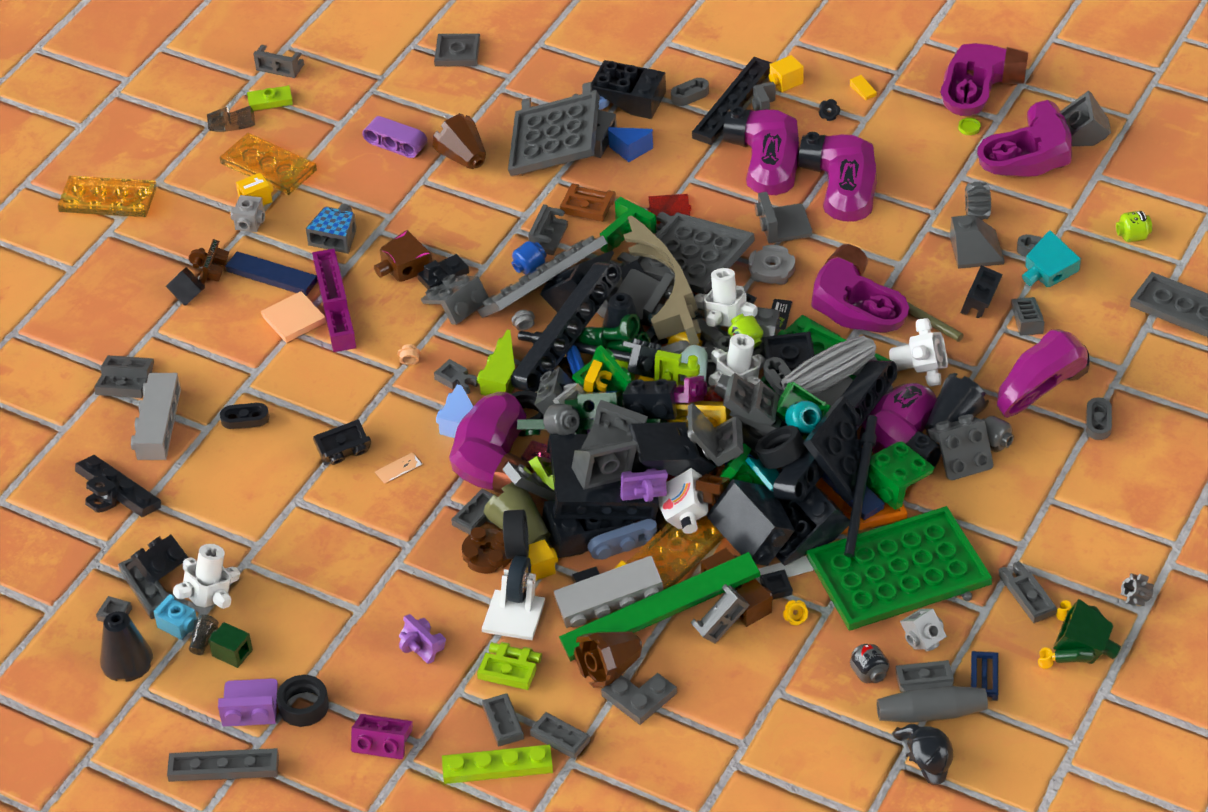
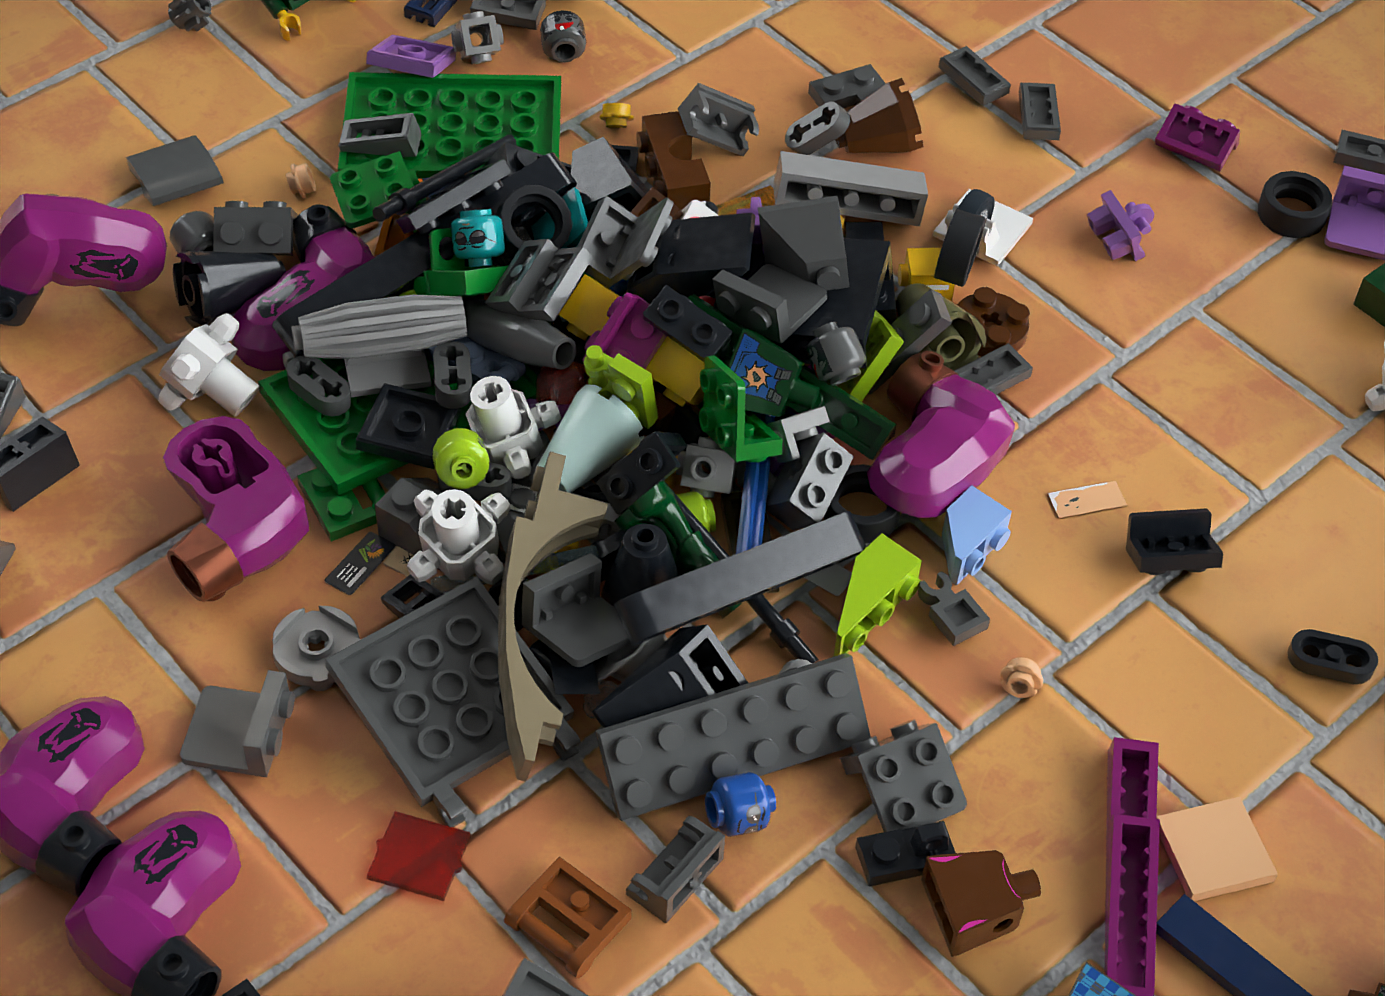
camera: 165 degrees left, 5 degrees up
(497, 764) = (1069, 77): lime plate -> none
(507, 670) = (1013, 159): lime plate -> none
(594, 376) = (759, 408): yellow tile -> none
(623, 209) = (526, 820): green bracket -> none
(650, 633) = (817, 128): none -> dark grey beam
(668, 601) = (764, 151): green tile -> none
(923, 529) = (392, 135): none -> dark grey slope
(937, 324) = (144, 473): olive bar -> none
(961, 604) = (411, 56): none -> medium lavender plate
(966, 499) = (301, 180): none -> light nougat plate
(1028, 592) = (316, 54): dark grey hinge -> none
(1049, 479) = (174, 170): none -> dark grey slope

